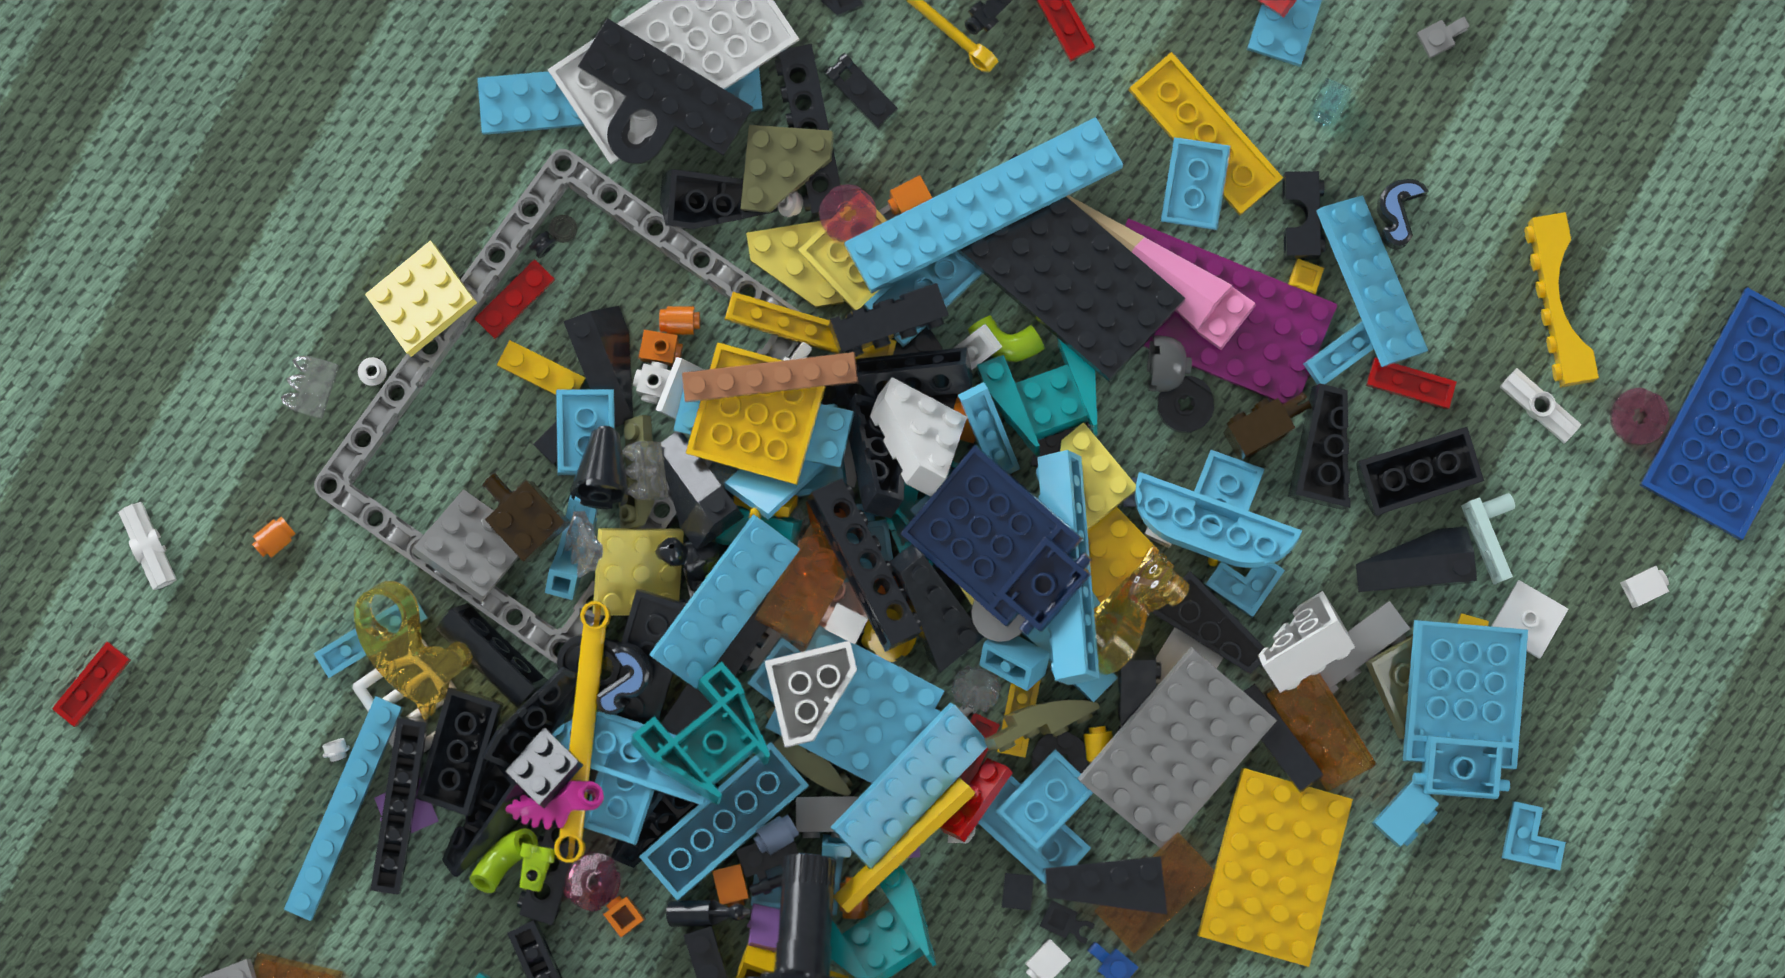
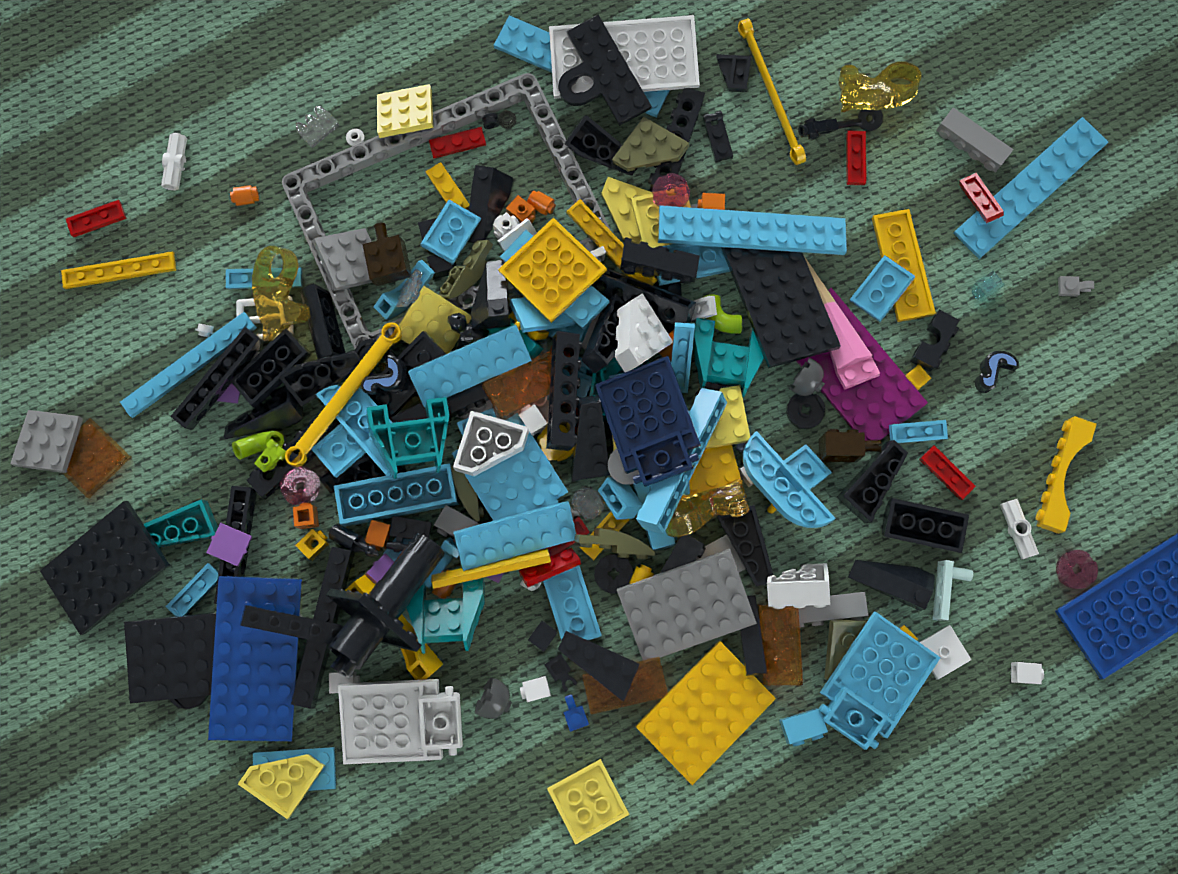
camera: 30 degrees right, 5 degrees down
(166, 736) = (118, 270): none -> yellow tile
(544, 767) = (309, 402): plate -> none
(567, 800) = (304, 426): dark pink plant -> none
(601, 472) = (443, 255): black cone -> none
(645, 953) = (305, 544): none -> yellow brick
(647, 470) = (471, 270): clear plate -> none
(770, 377) = (571, 252): nougat plate -> none
(776, 835) = (420, 519): sand blue brick -> none
(791, 205) = (642, 174): white plate -> none
(1044, 801) = (590, 591): medium azure tile -> none
(1244, 592) = (781, 538): medium azure plate -> none
(1372, 280) = (956, 400): medium azure plate -> none
(1523, 842) = (867, 785): medium azure plate -> none

